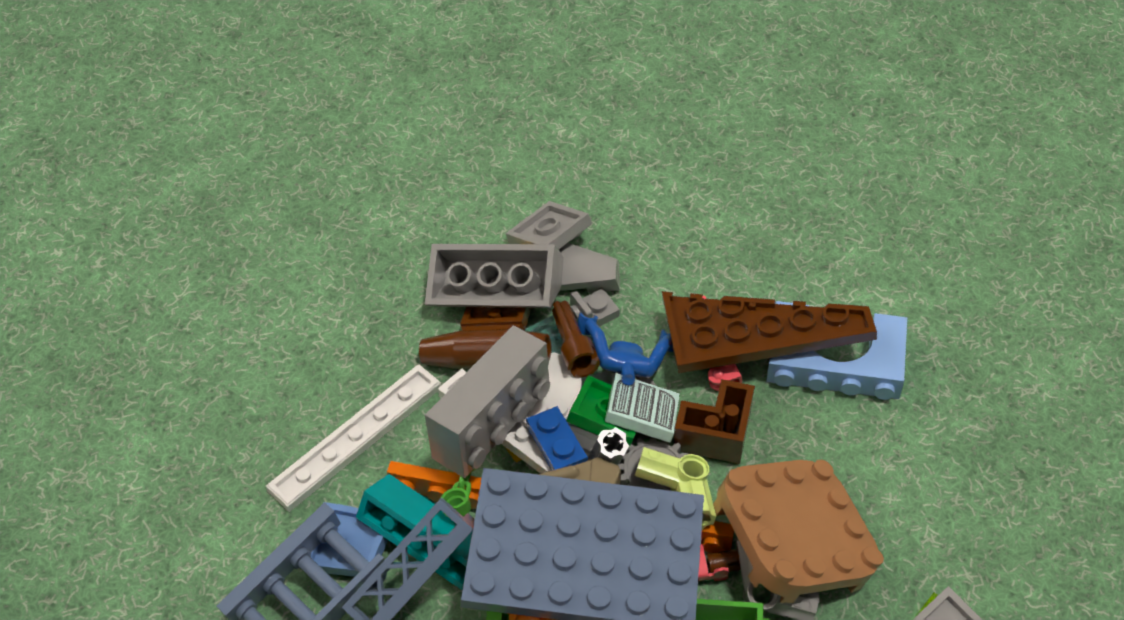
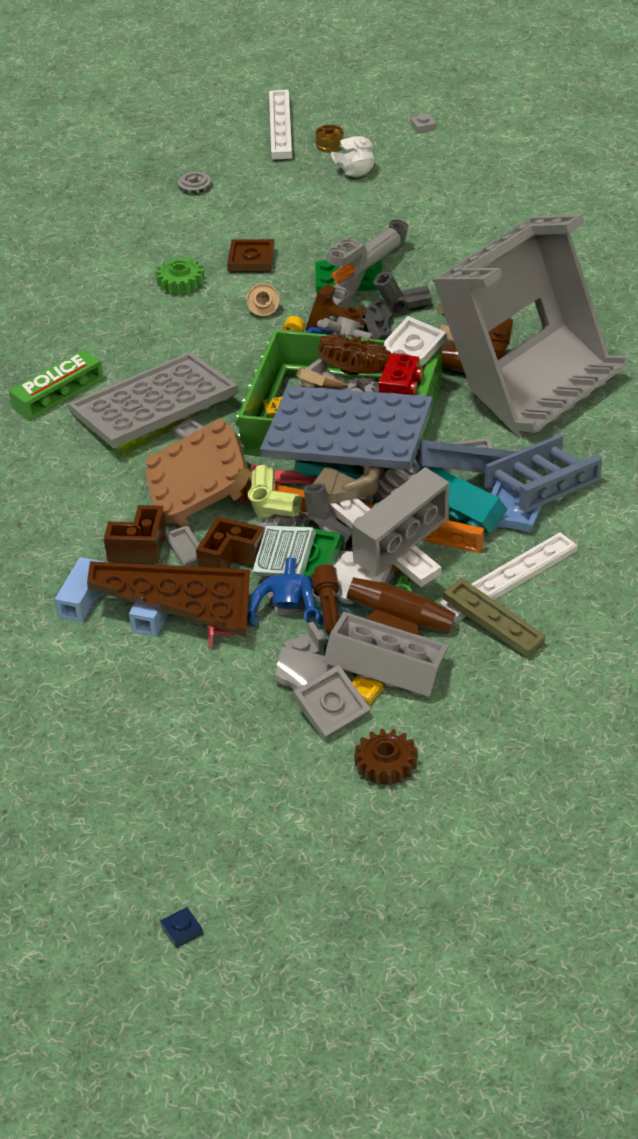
camera: 170 degrees left, 10 degrees down
(374, 353) = (494, 617): none -> olive plate
(482, 183) = (386, 757): none -> reddish brown gear
(555, 439) = (349, 509): blue plate -> none
(645, 28) = (181, 927): none -> dark blue plate
(777, 441) = (183, 545): none -> light grey tile
(841, 424) = (137, 540): none -> reddish brown brick

